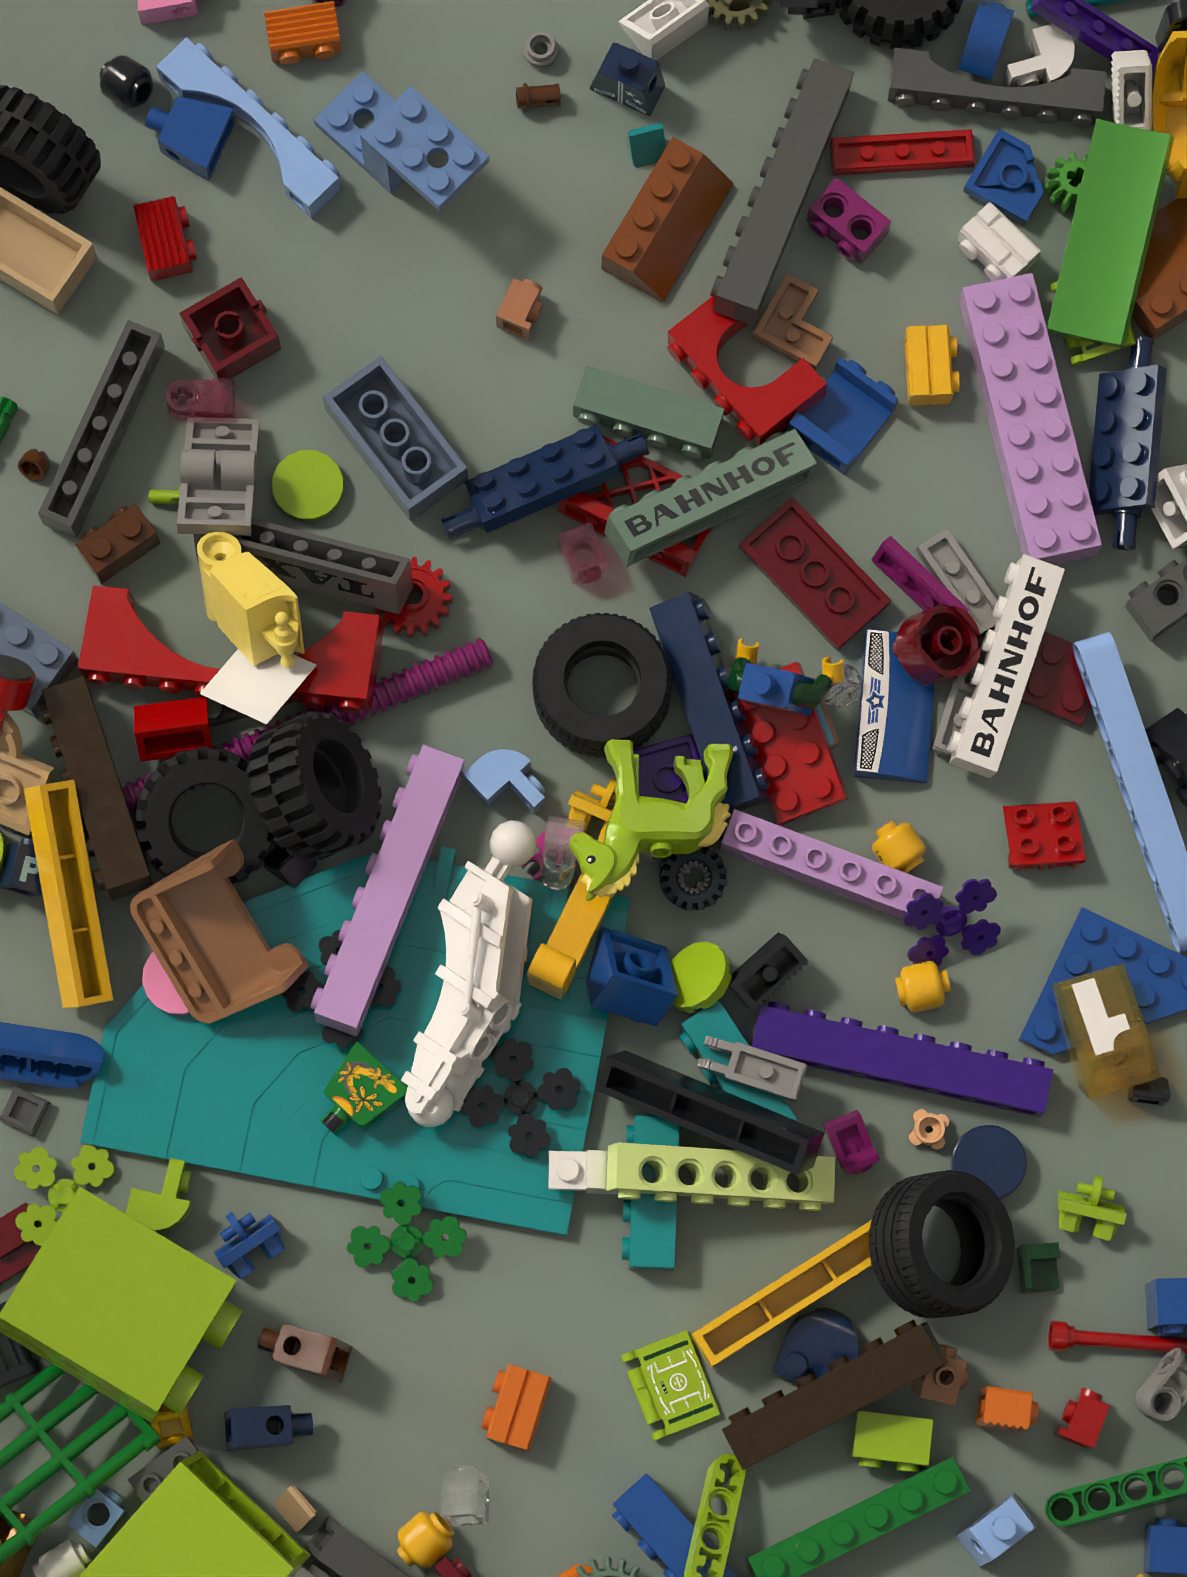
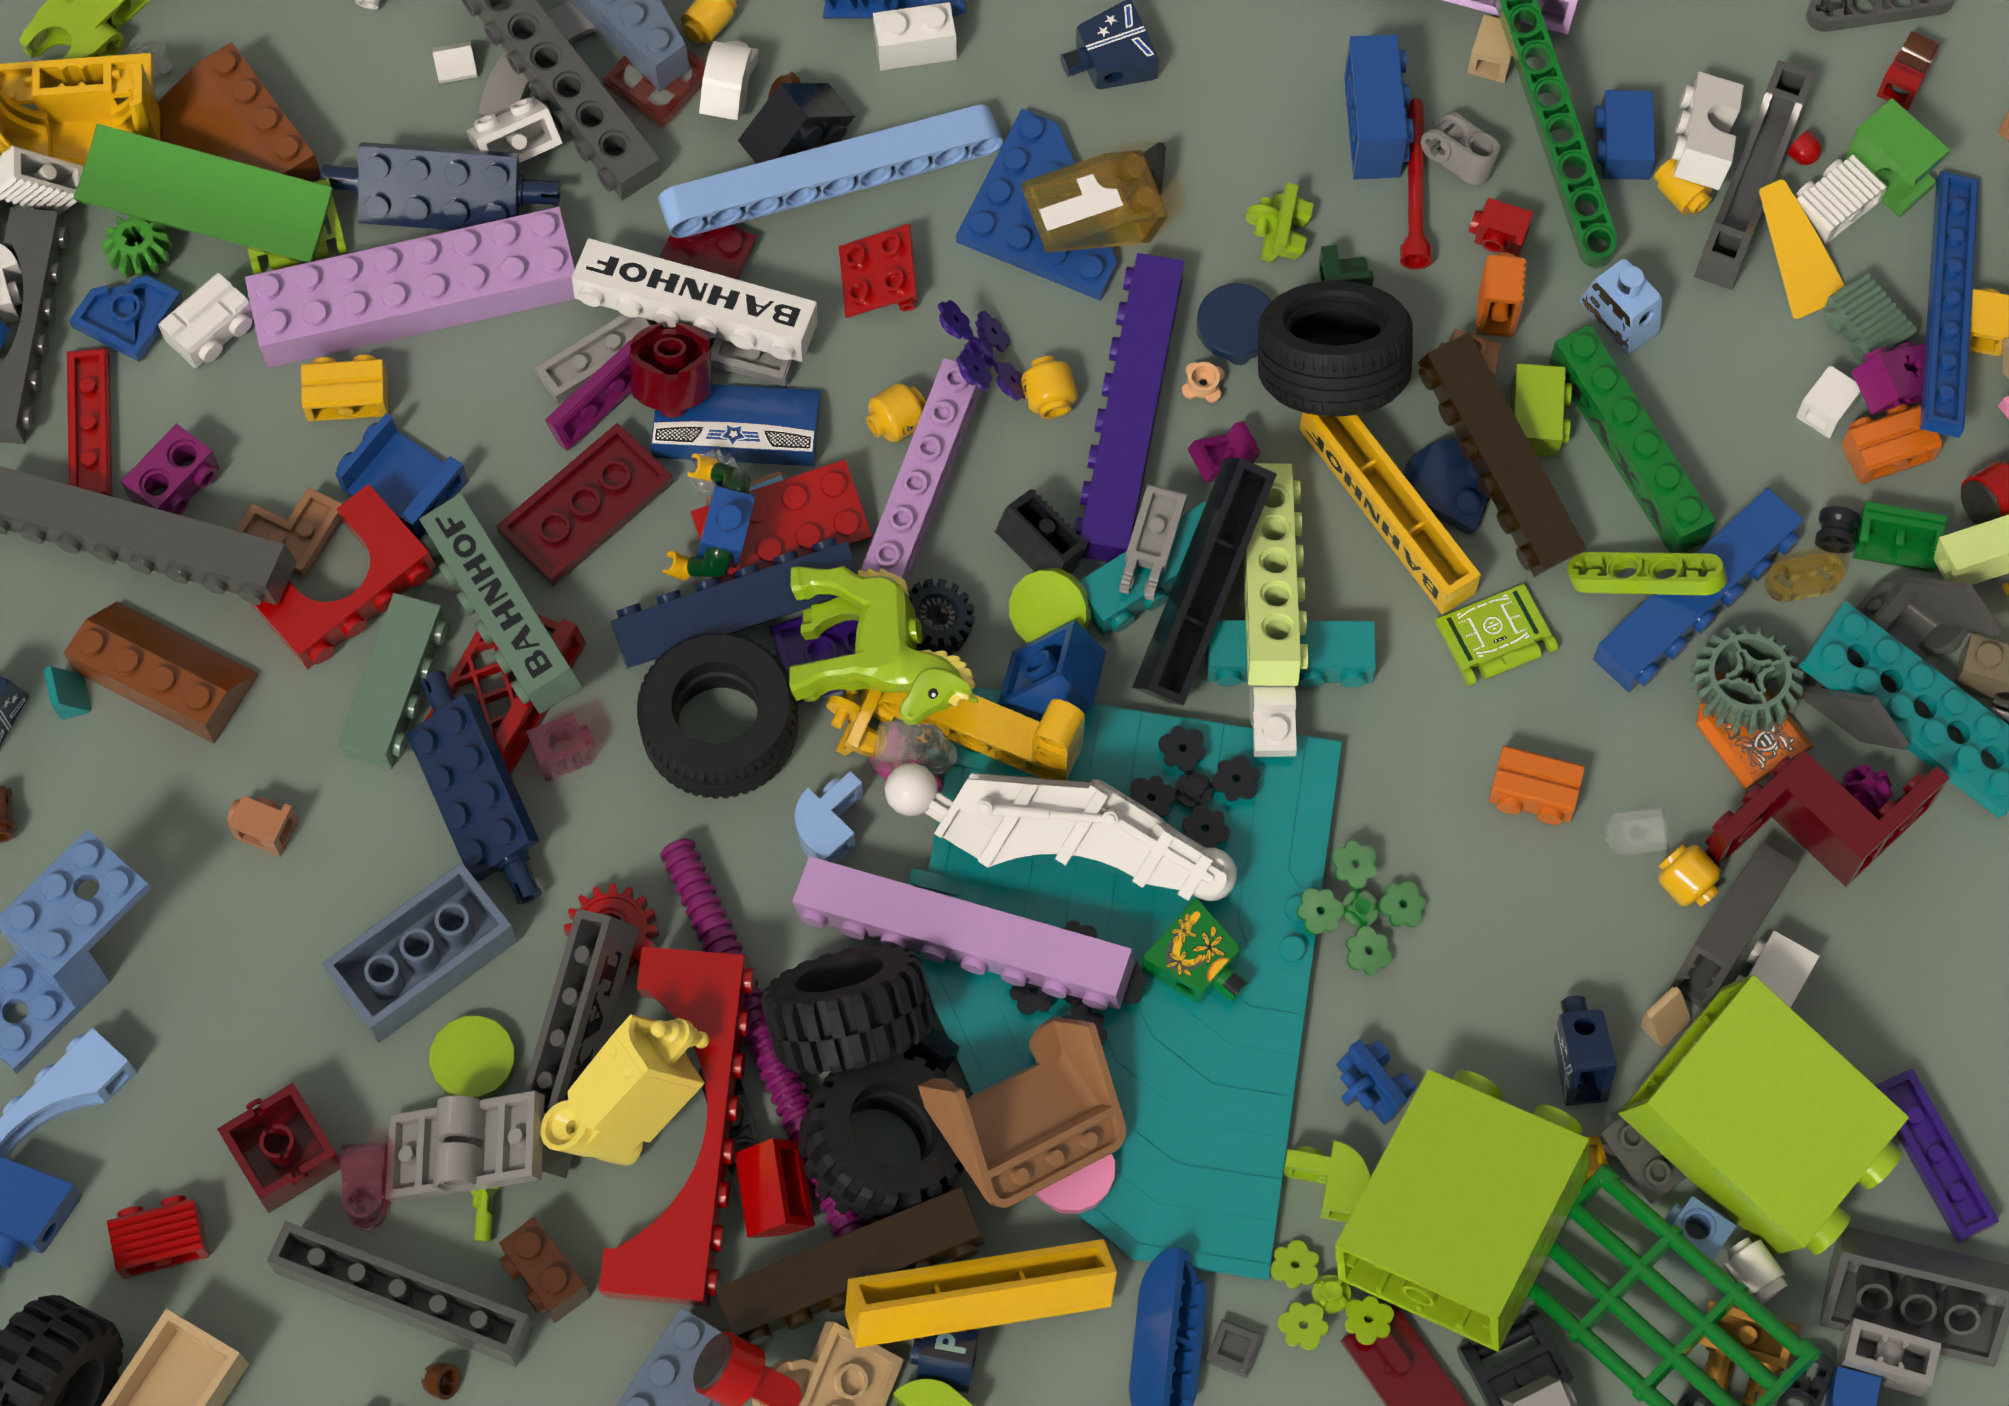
camera: 90 degrees left, 10 degrees down
(257, 689) = (734, 1078): white sticker -> none
(317, 1354) = (1499, 991): reddish brown torso -> none

